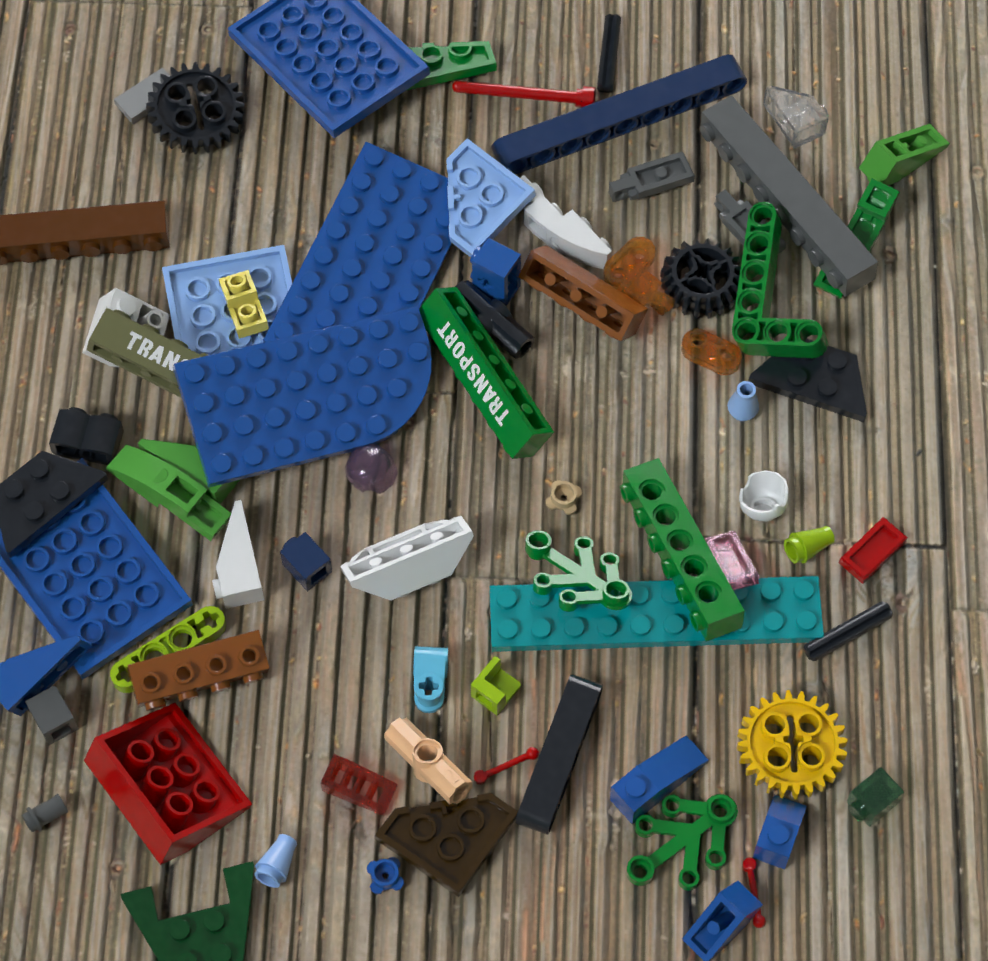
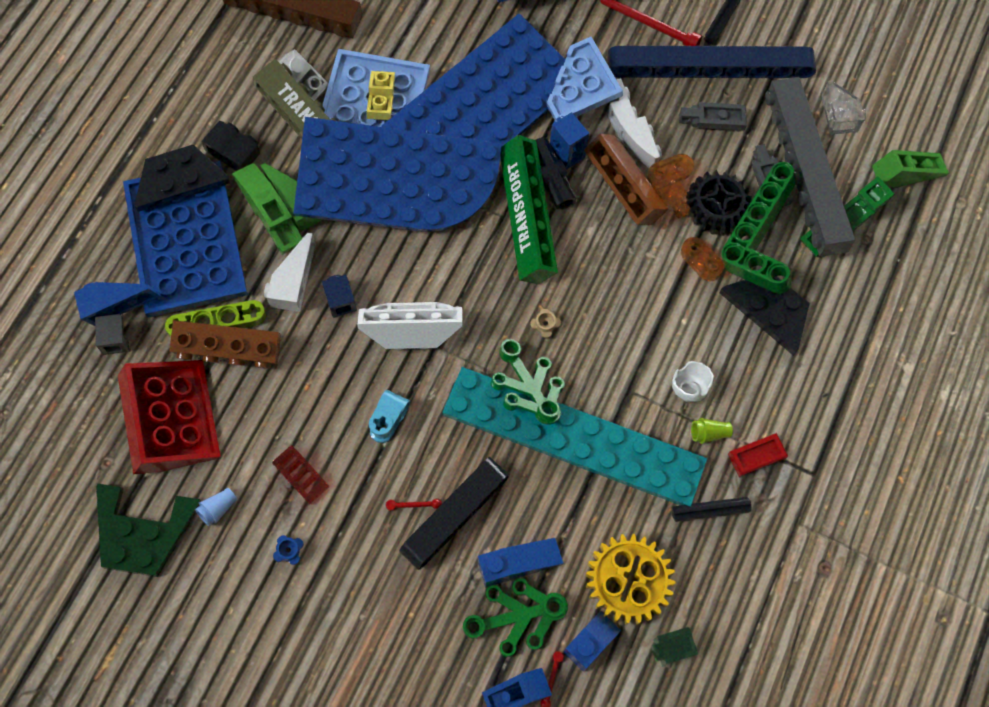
camera: 20 degrees right, 5 degrees up
(44, 813) = (74, 402): dark grey pin -> none
(371, 469) = (417, 247): clear purple hair -> none
(440, 772) = (359, 490): light nougat piece -> none
(447, 838) = (346, 541): dark brown plate -> none
(494, 687) = (431, 442): lime panel -> none
(711, 618) = (622, 458): green brick -> none
(733, 560) = (646, 420): clear pink tile -> none
(744, 403) = (709, 305): light blue cone -> none

